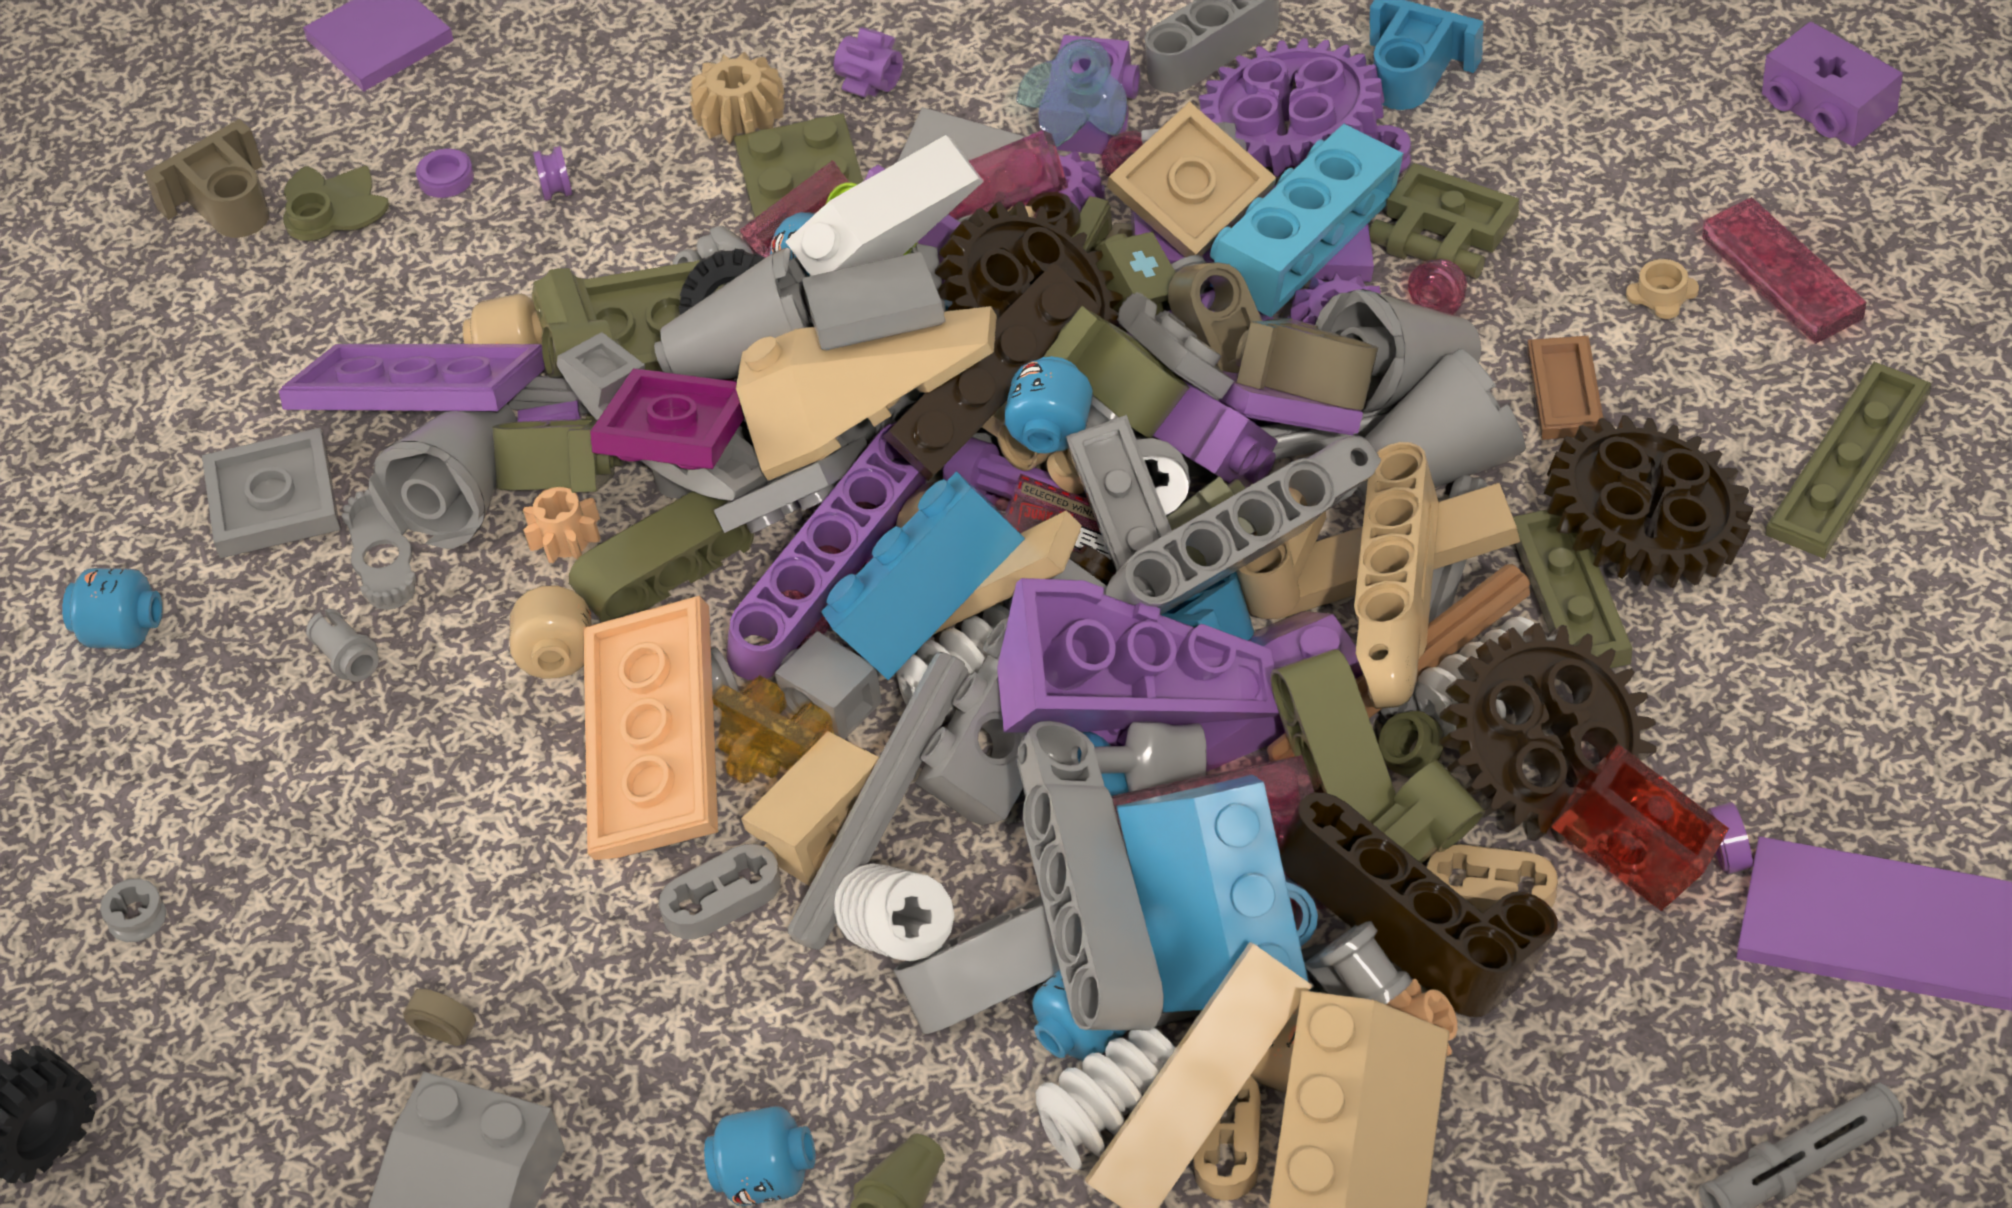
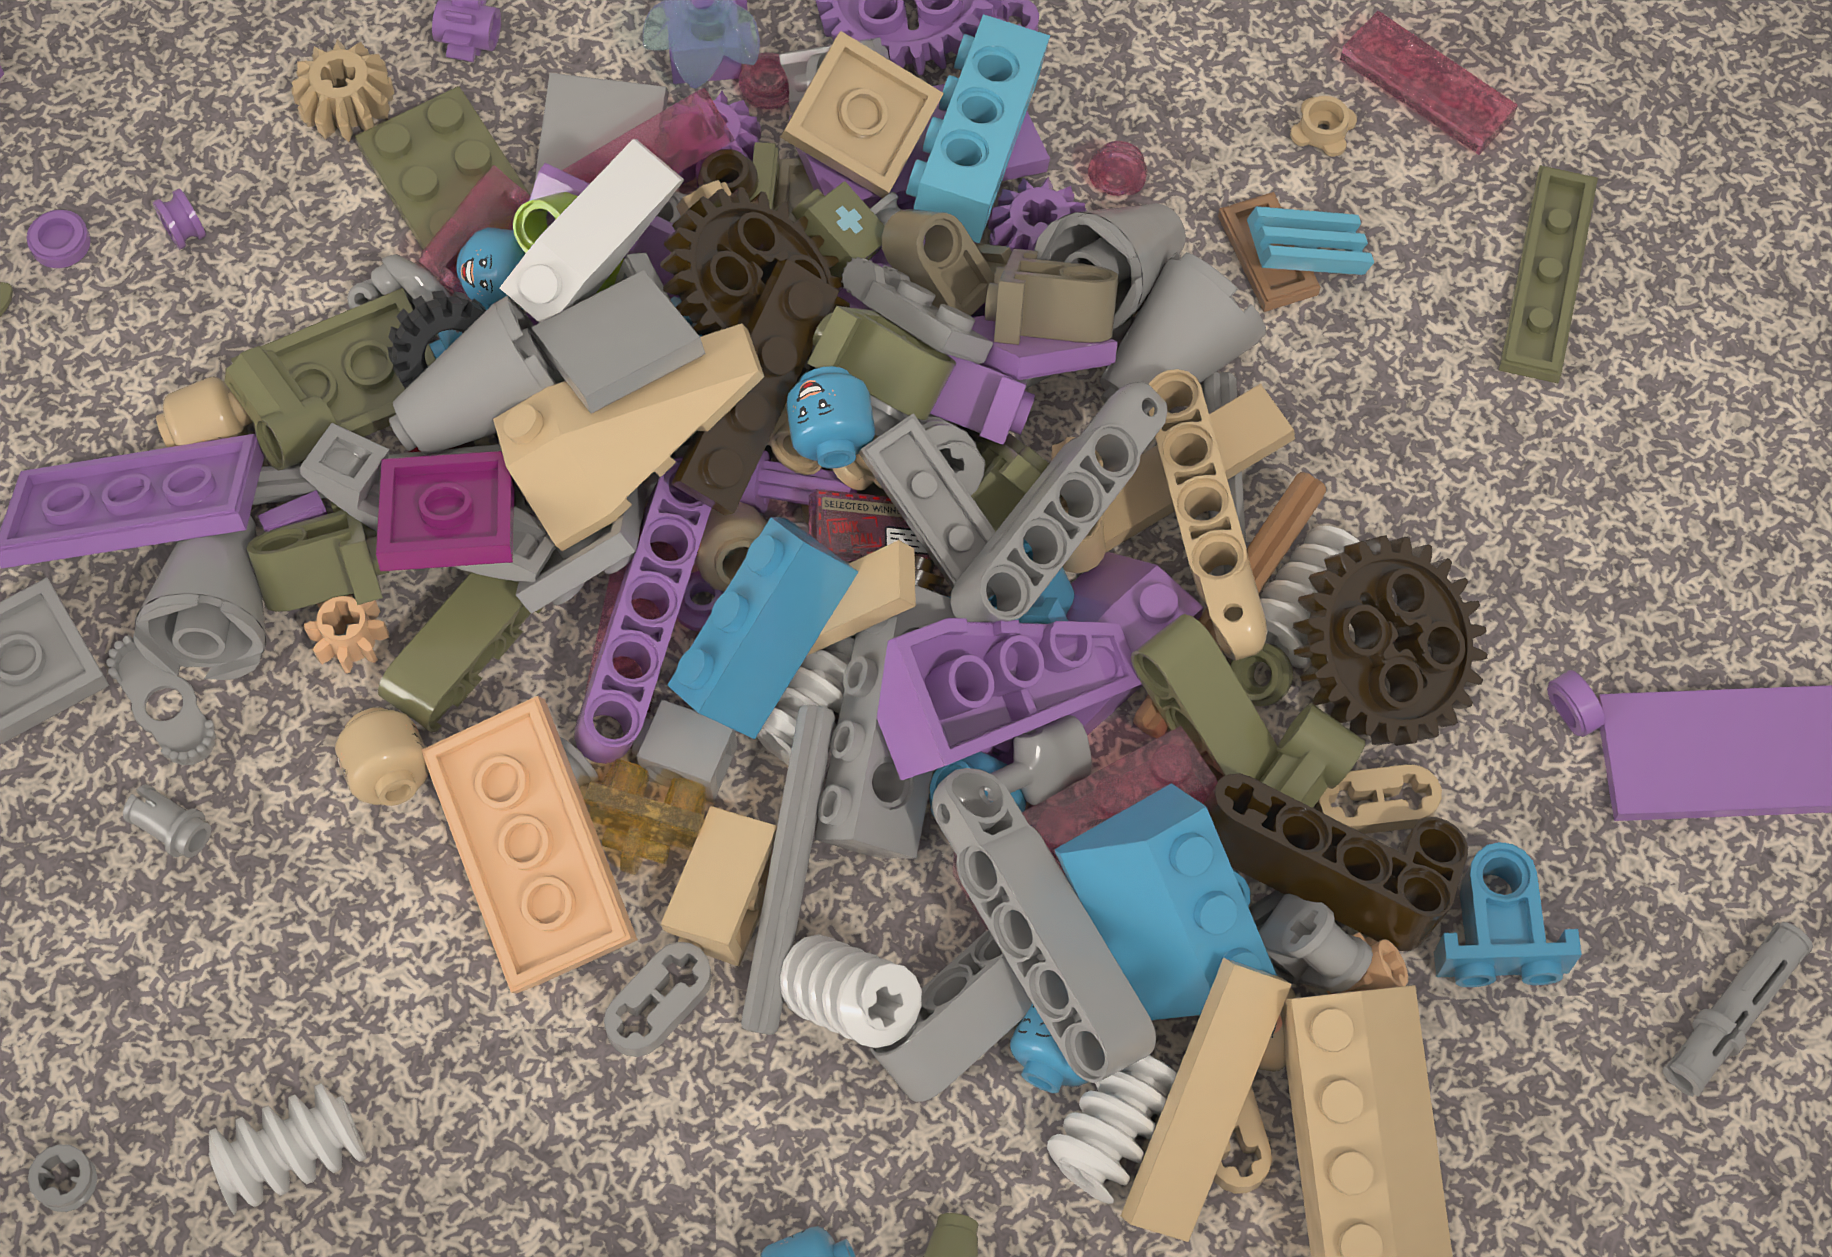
camera: 25 degrees left, 15 degrees up
(331, 927) = (284, 1146): none -> white piece
(439, 1017) = (432, 1216): dark tan tile -> none
(1449, 207) = (1098, 77): olive plate -> none
(1570, 586) = (1354, 476): olive plate -> none
(1573, 1017) = (1504, 930): none -> dark azure pin
(1605, 379) = (1307, 232): none -> medium azure tile
(1605, 498) = (1392, 365): dark brown gear -> none
(1640, 827) = (1508, 723): clear red brick -> none

